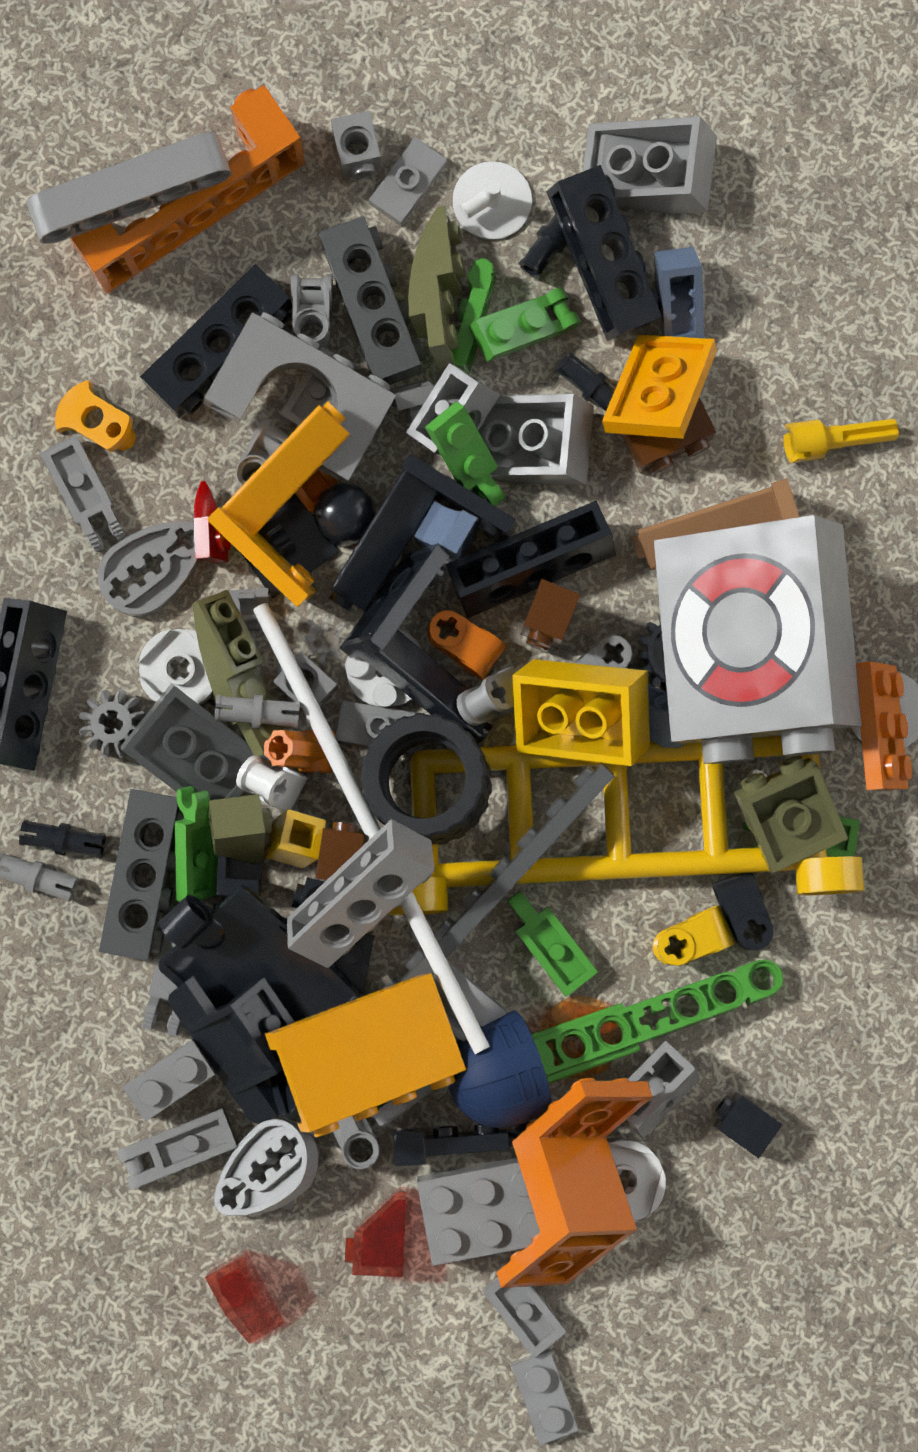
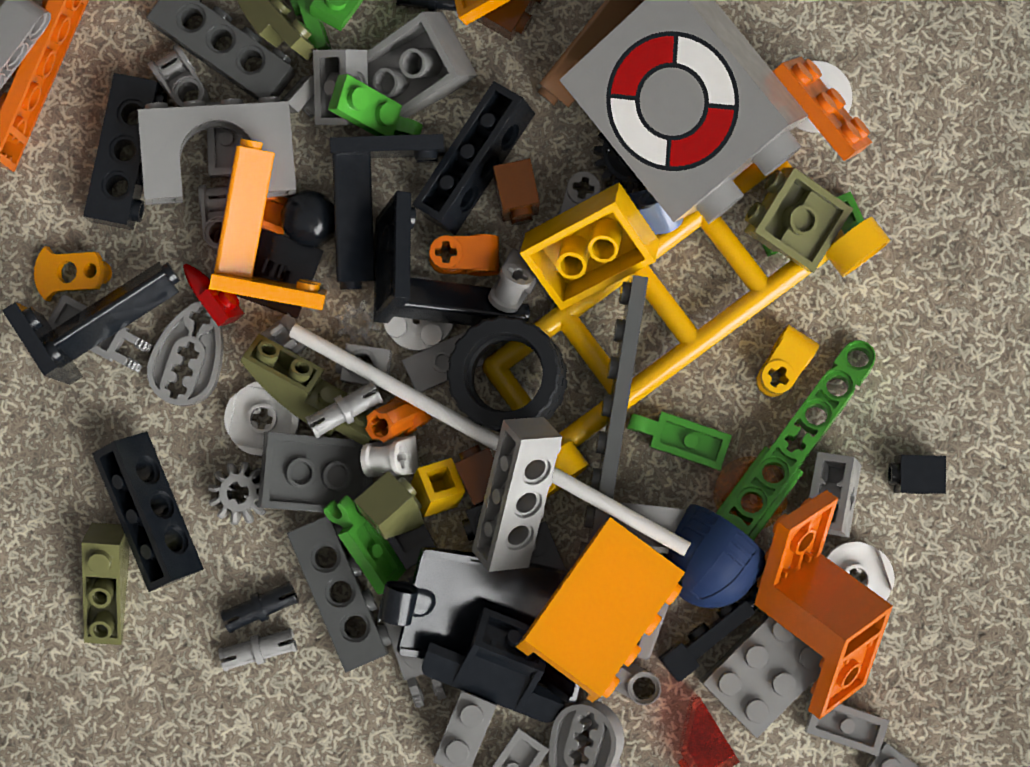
camera: 30 degrees left, 0 degrees up
(32, 480) = (58, 347): none -> black piece
(447, 527) = (393, 176): sand blue arch -> none
(740, 902) = (804, 311): black piece -> none

